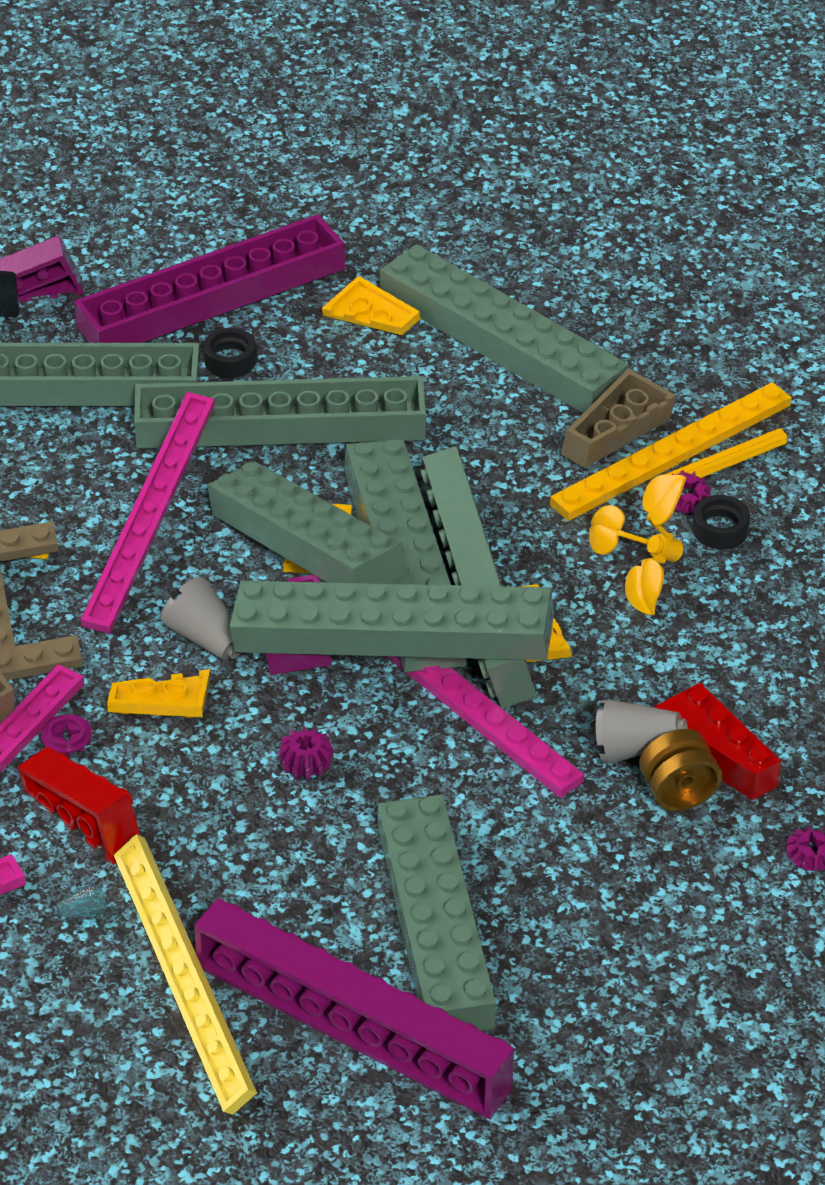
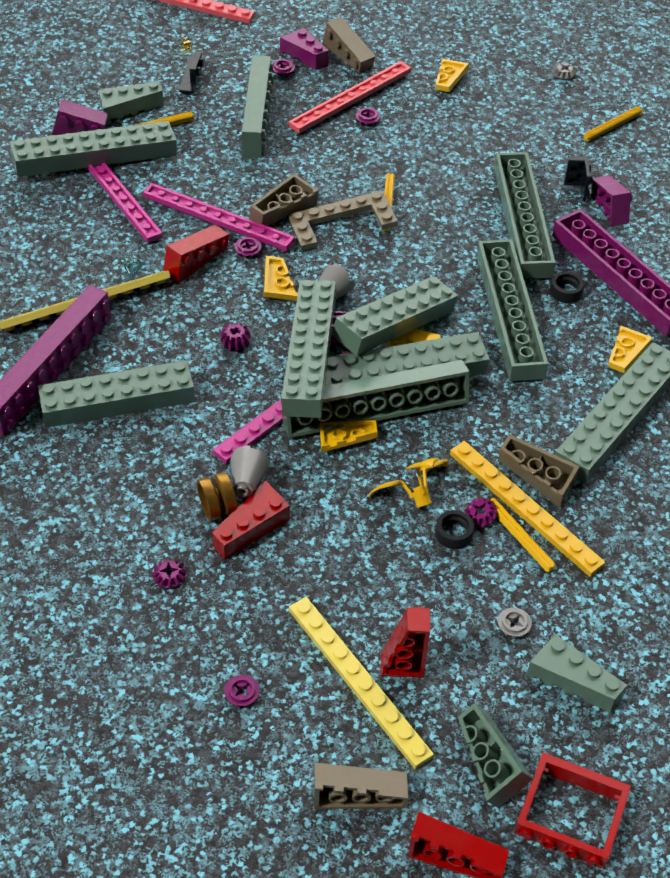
camera: 85 degrees right, 5 degrees up
(147, 513) = (412, 255): dark pink plate -> none

